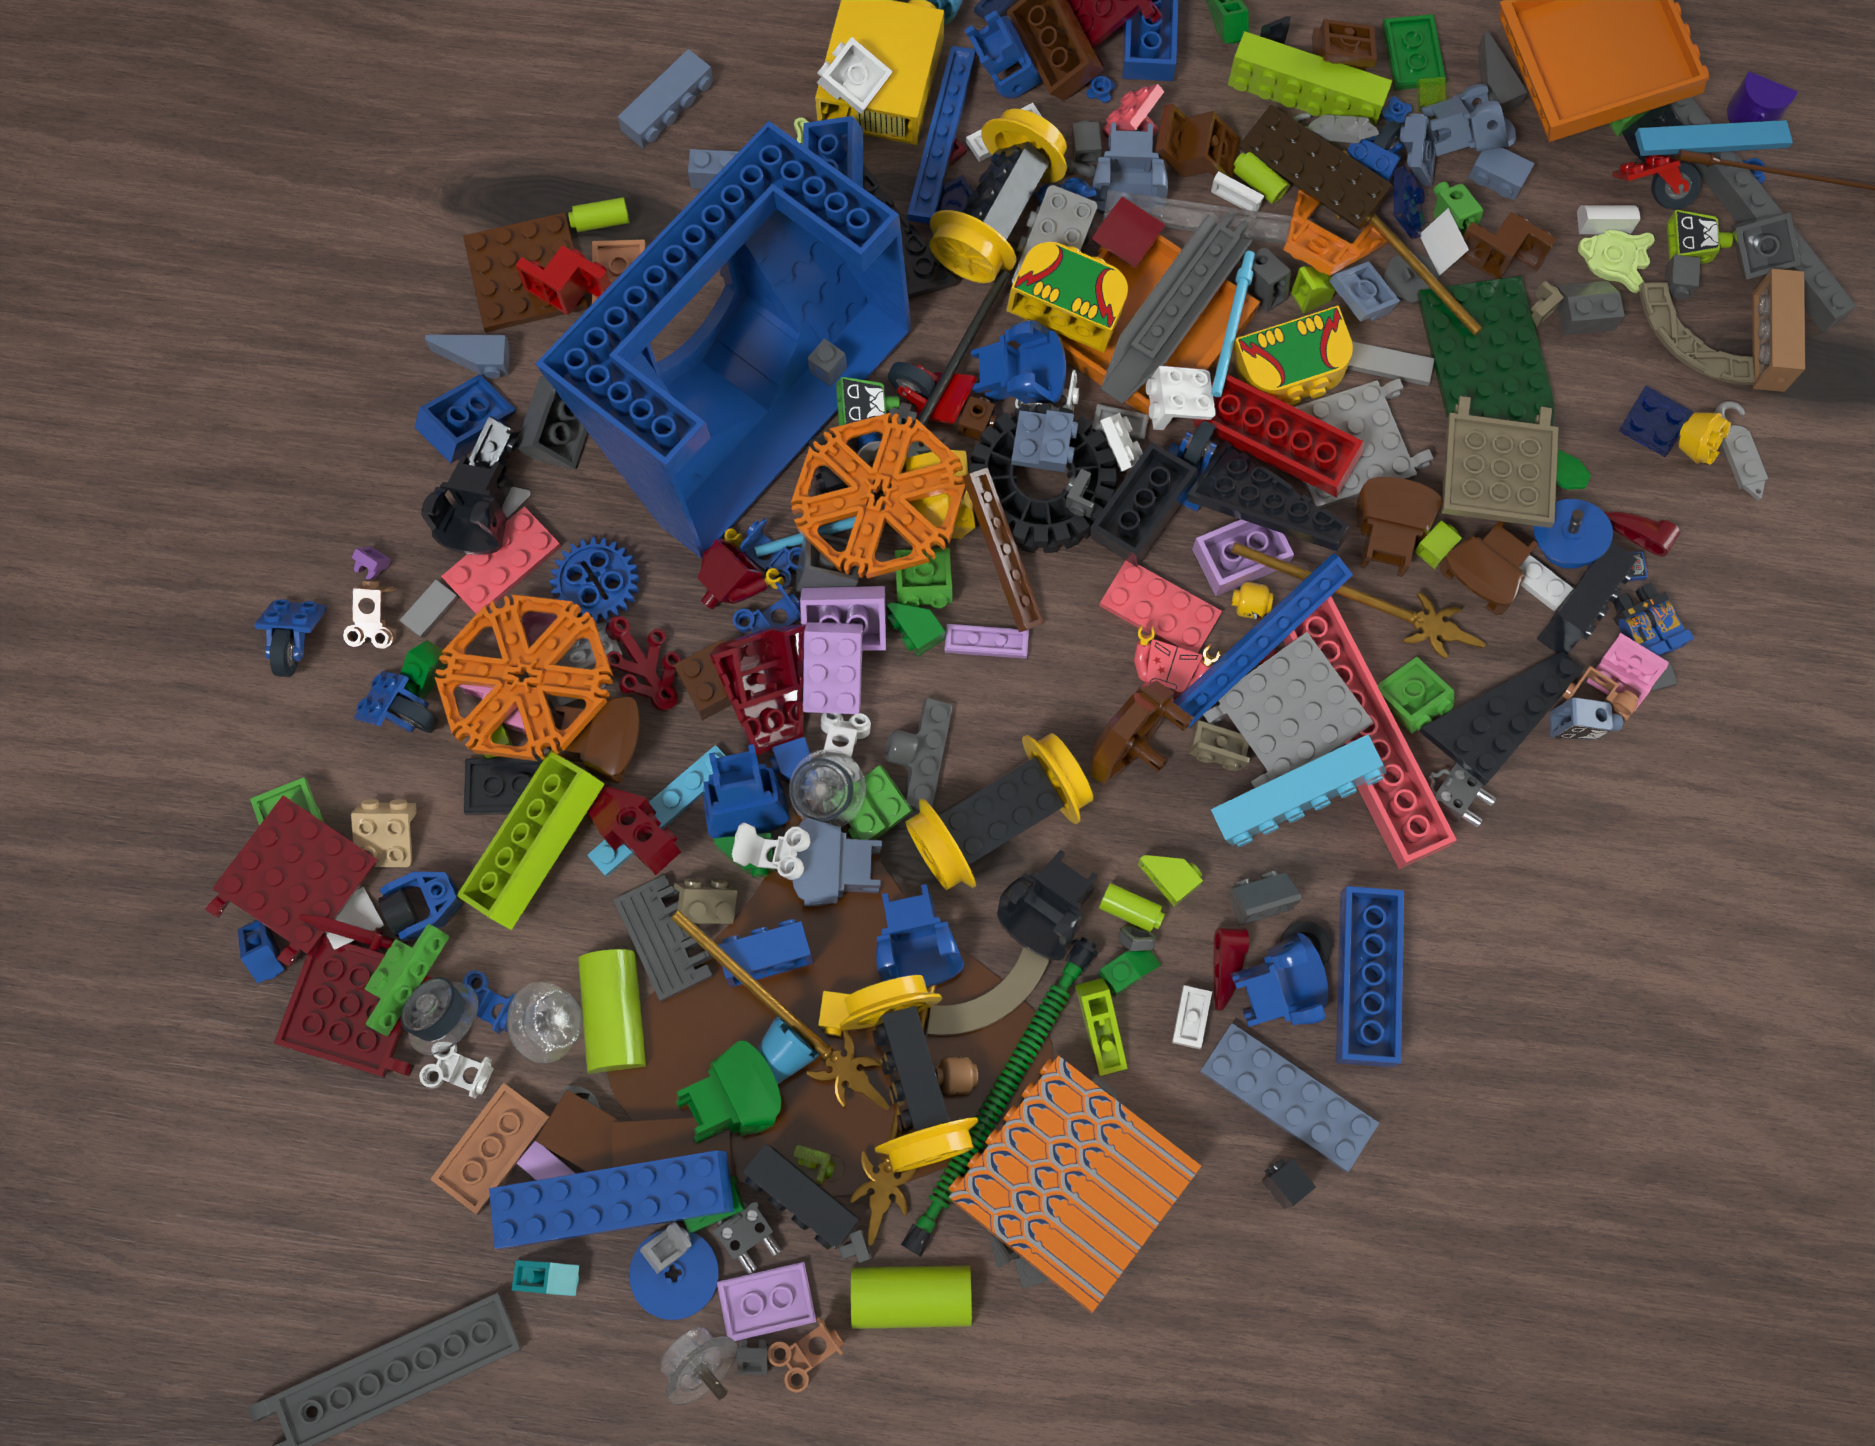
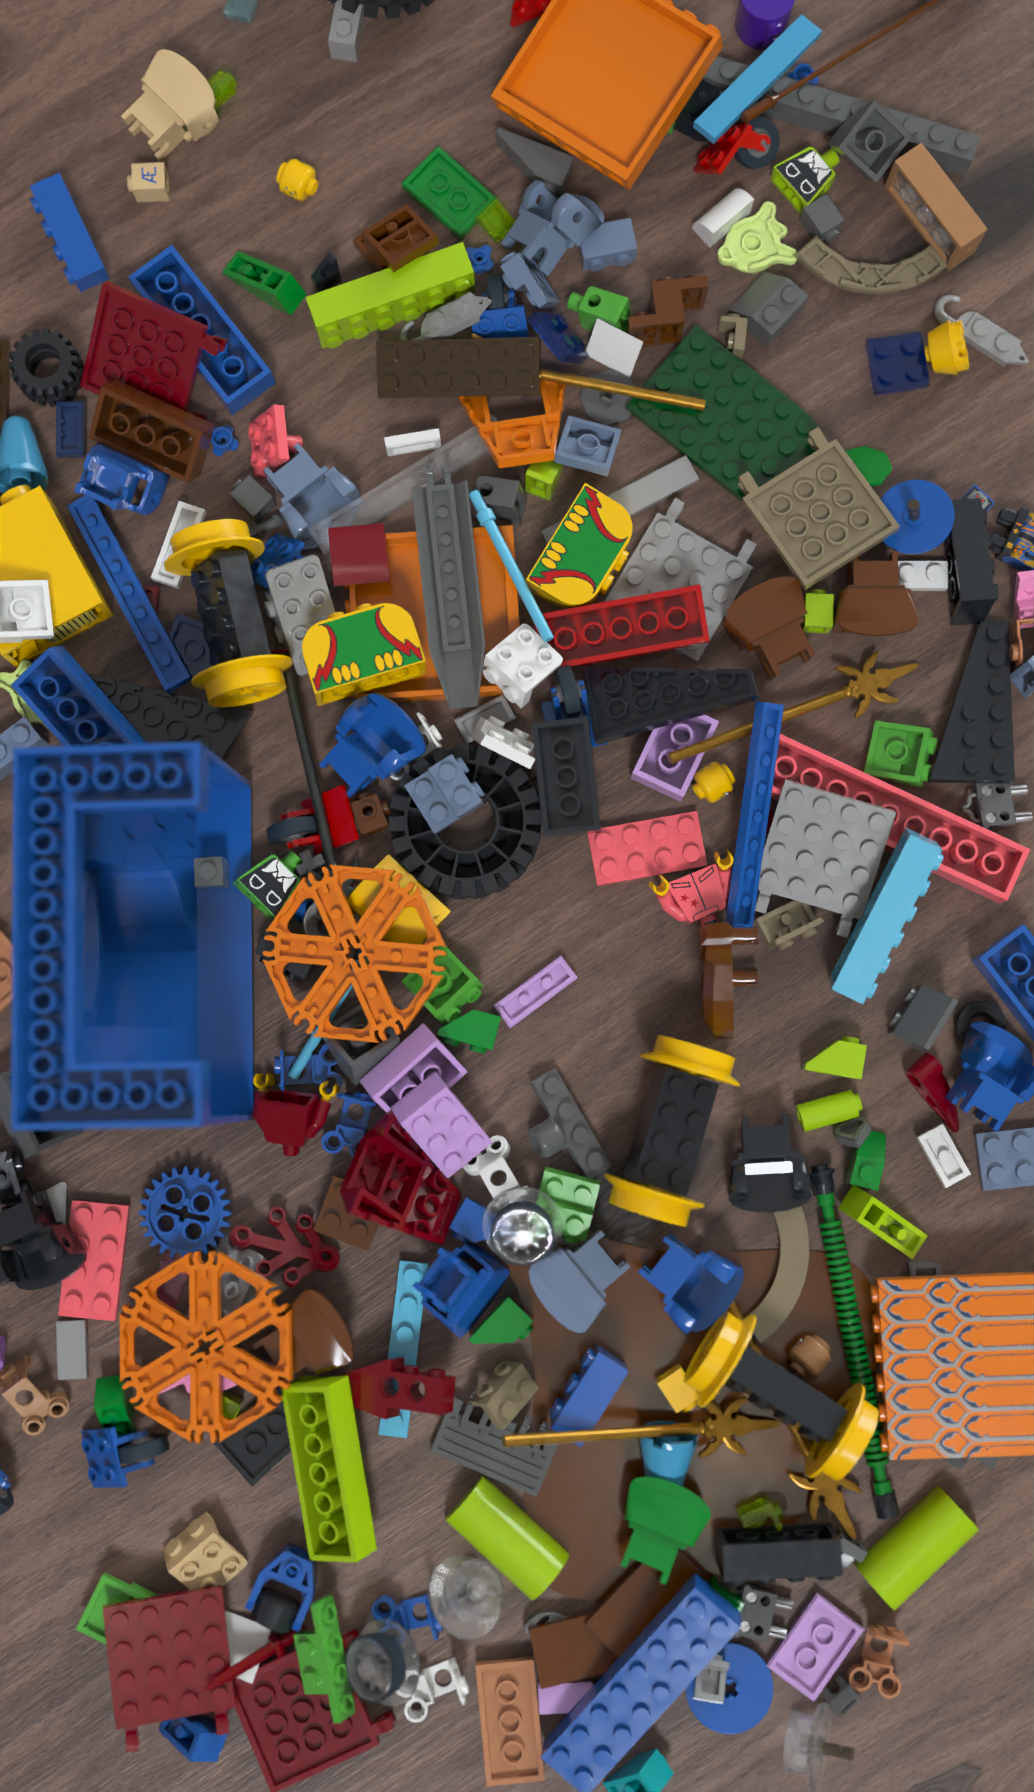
camera: 40 degrees left, 10 degrees up
(754, 850) = (509, 1324): white piece -> none
(1003, 549) = (489, 912): reddish brown plate -> none
(1076, 489) = (506, 813): dark grey bracket -> none
(1197, 143) = (345, 426): reddish brown bracket -> none
(1260, 177) = (419, 411): lime brick -> none
(1644, 532) = (962, 466): dark red piece -> none

